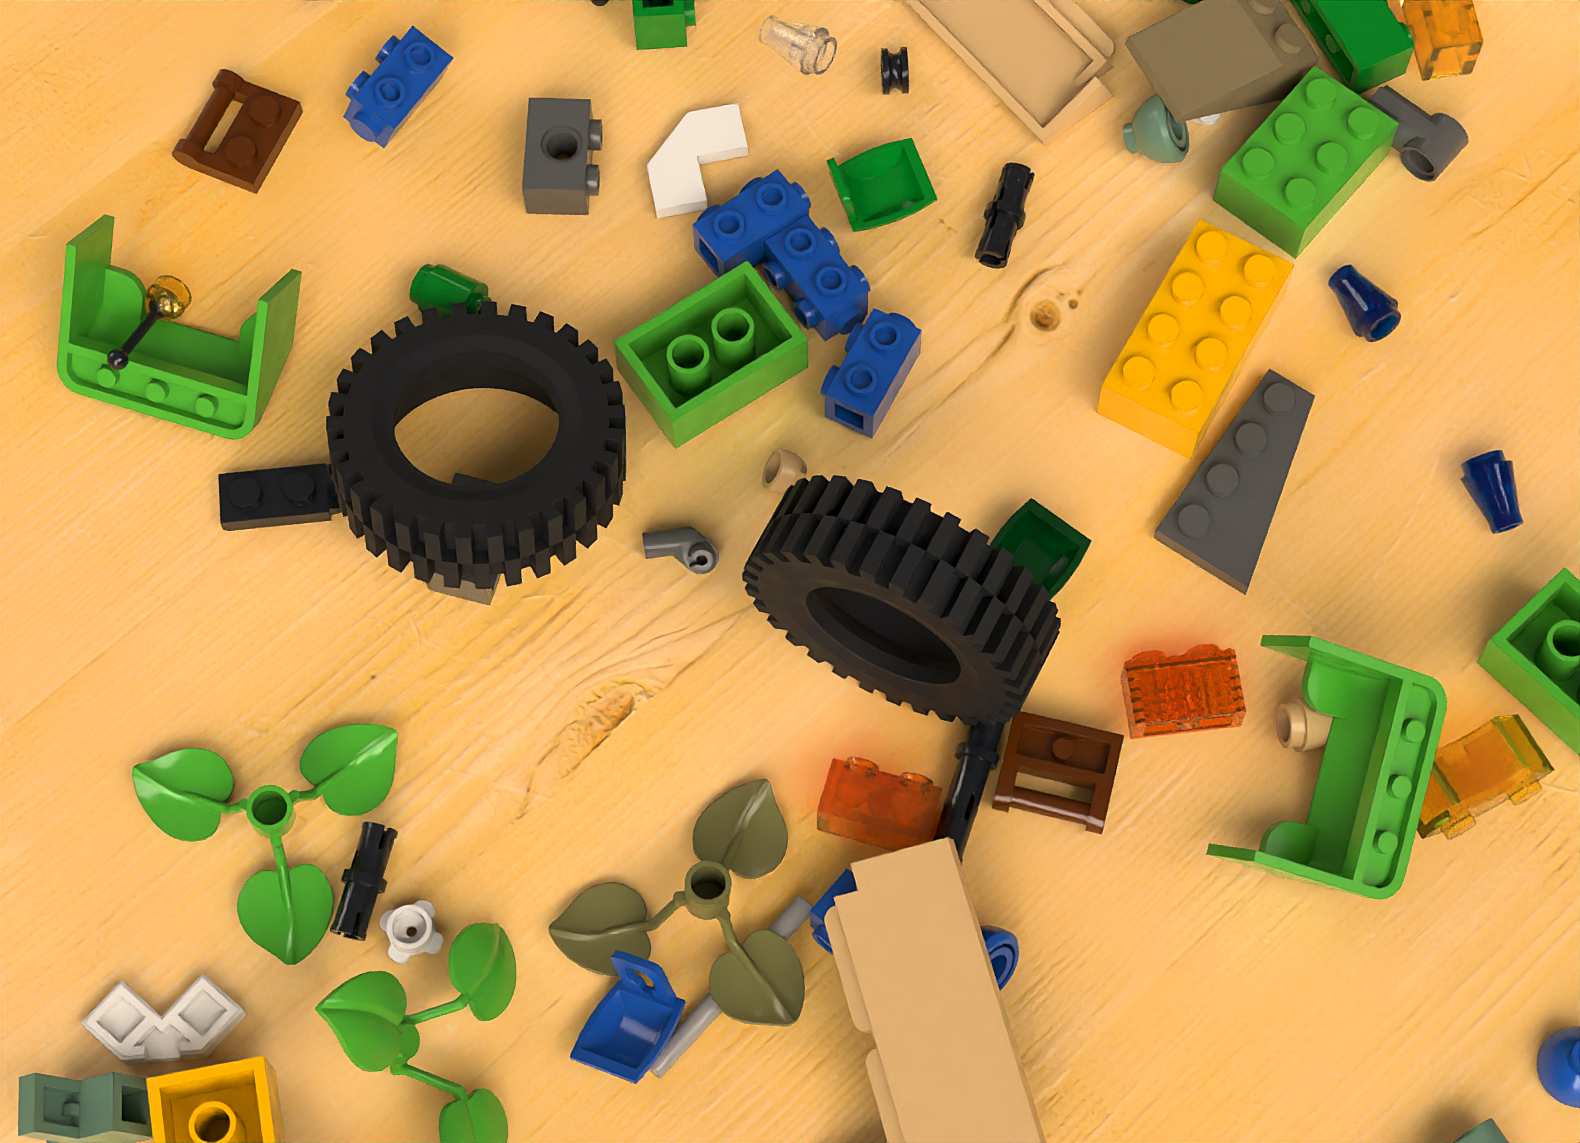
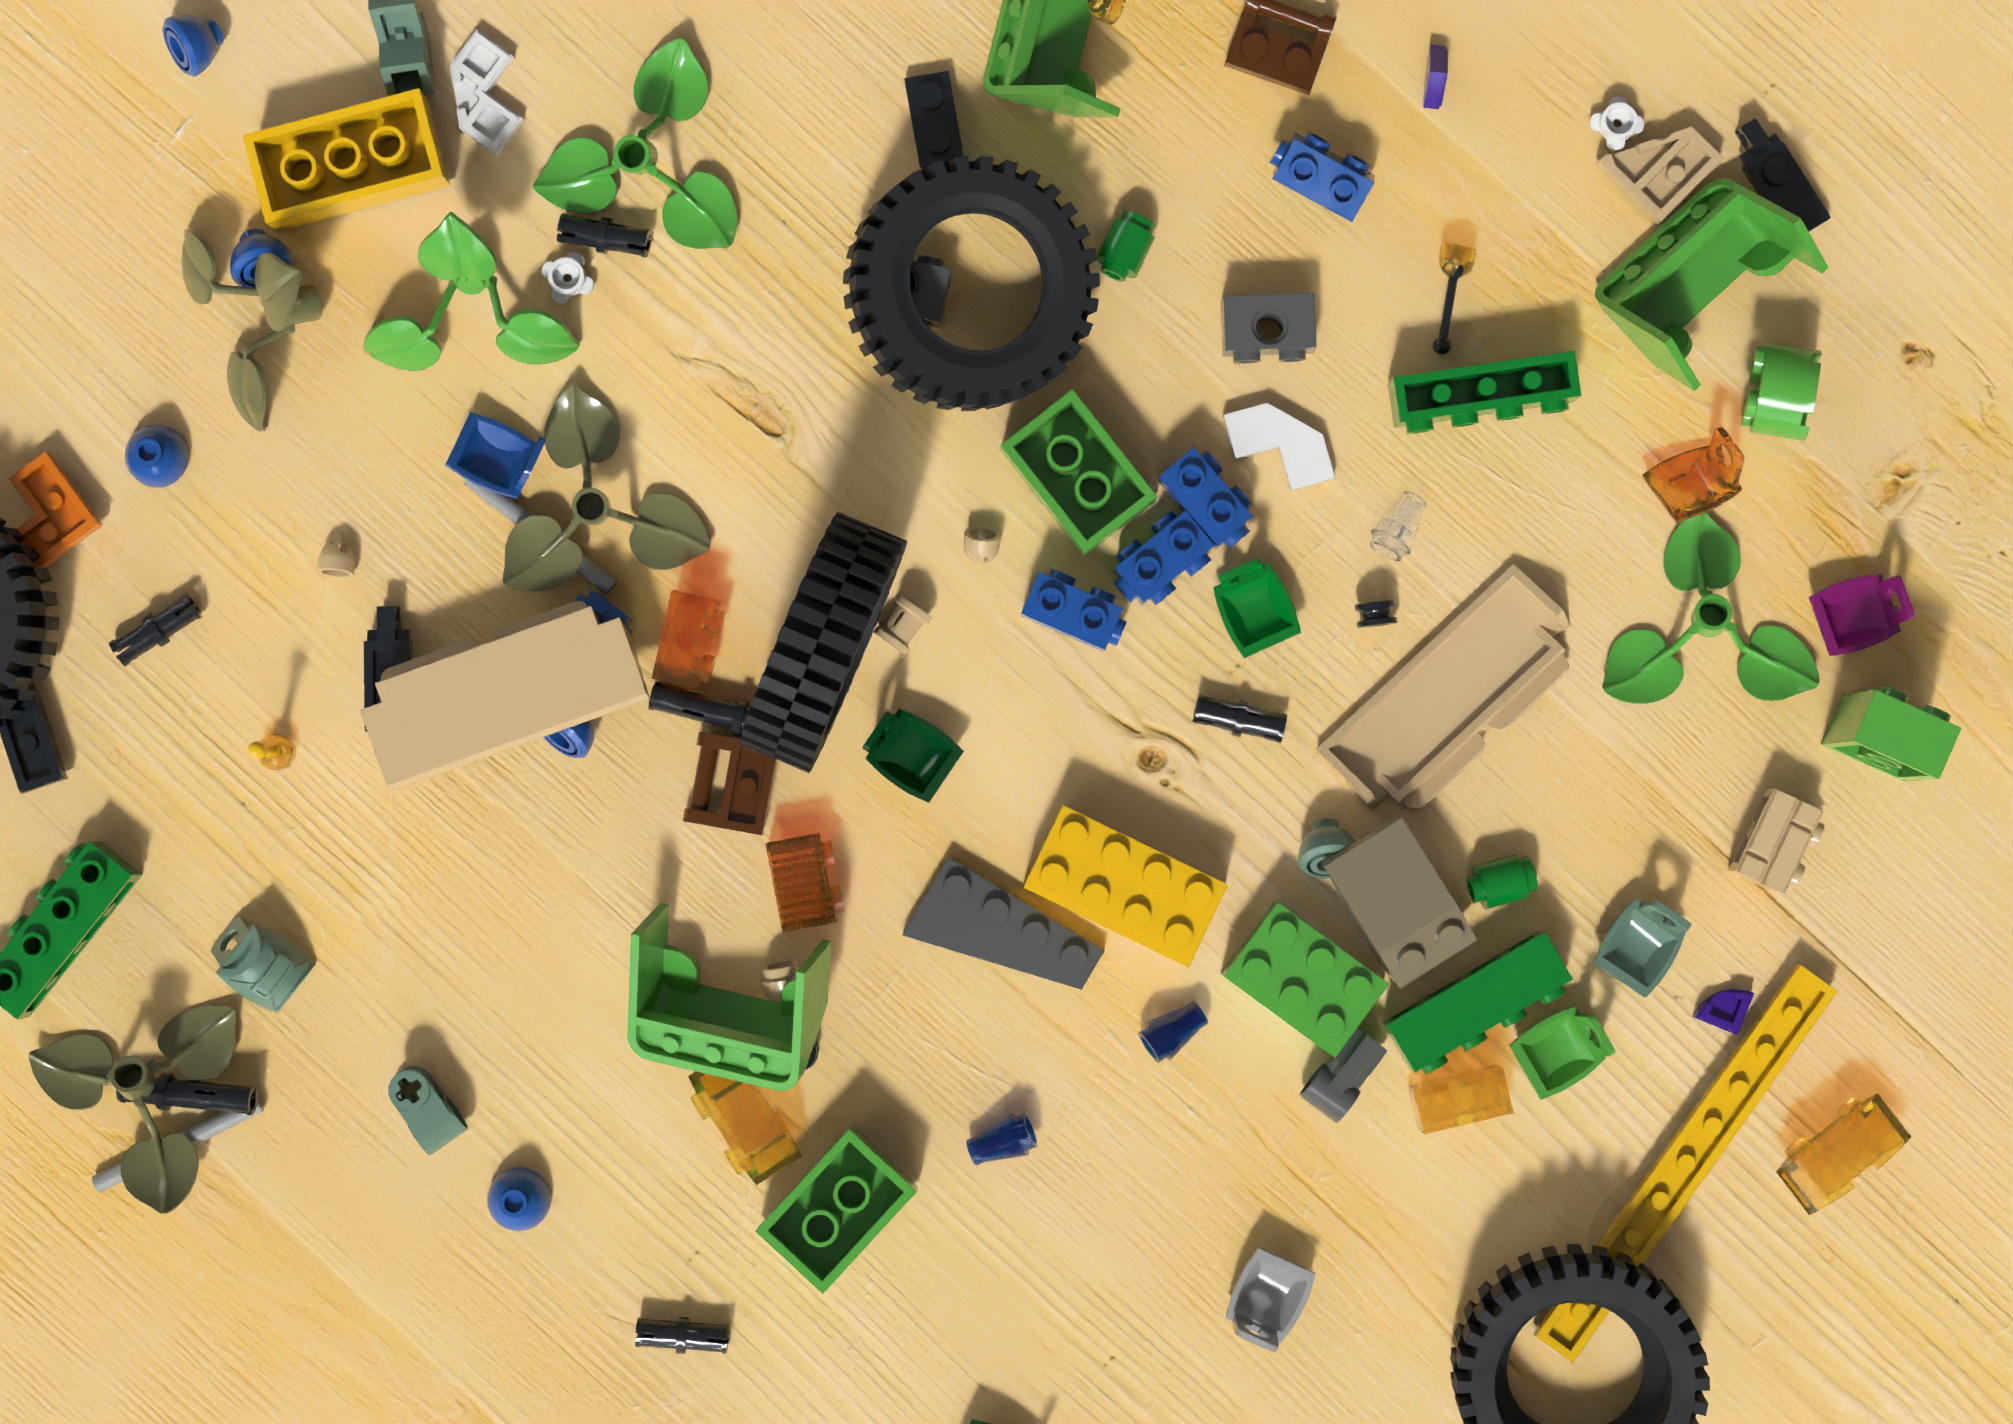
camera: 85 degrees right, 20 degrees up
(685, 545) = (911, 467): dark grey arm -> none

